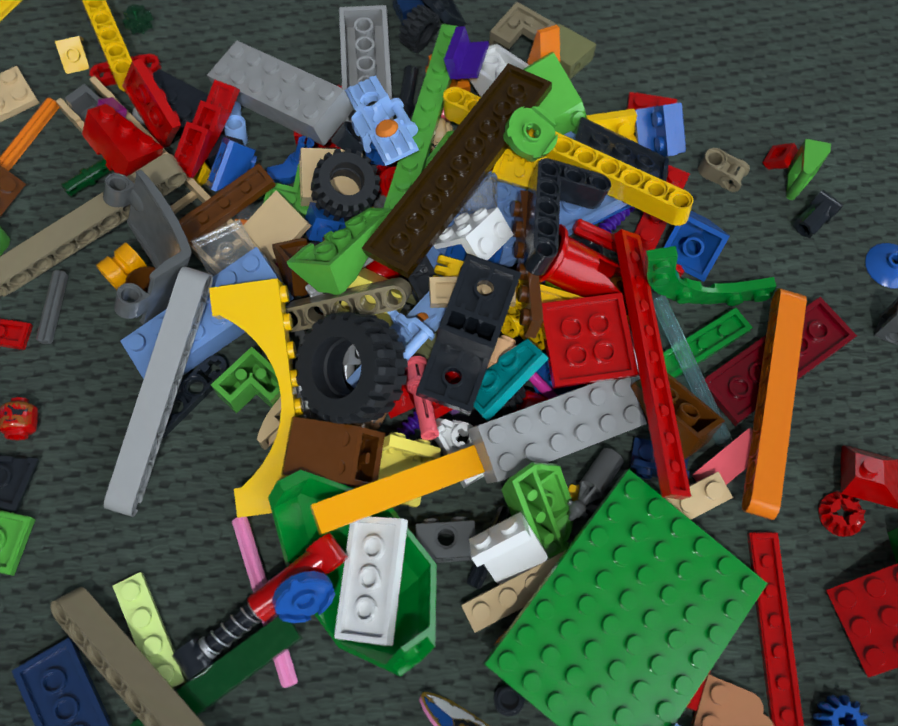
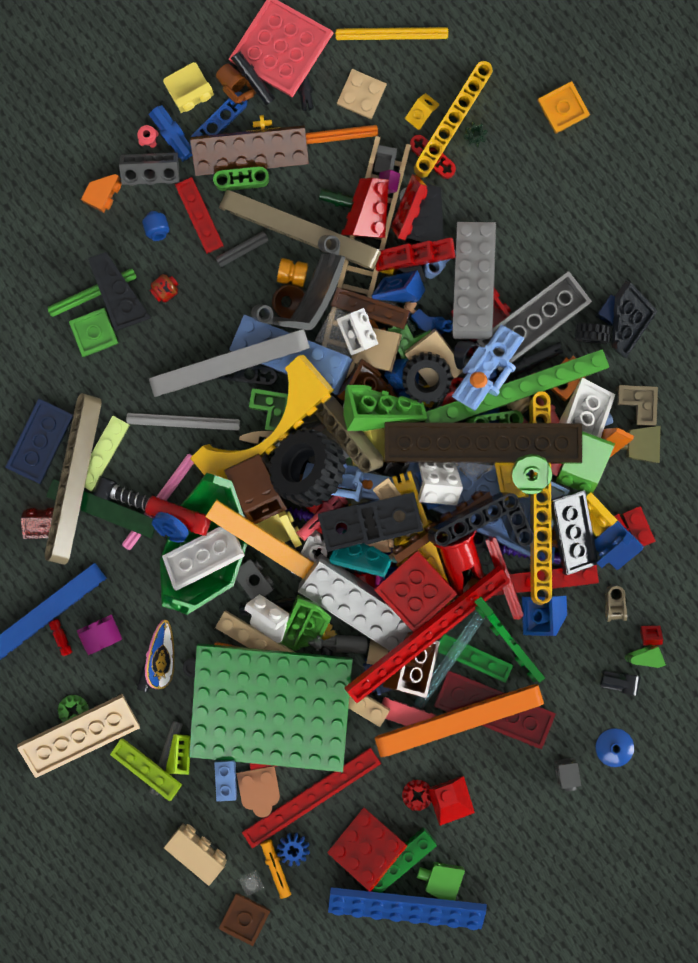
camera: 65 degrees right, 20 degrees up
(187, 504) = (183, 421): none -> light grey axle
(236, 223) = (357, 331): none -> white brick
(464, 57) = (580, 386): dark purple panel -> none
(633, 443) = (375, 652): none -> tan slope

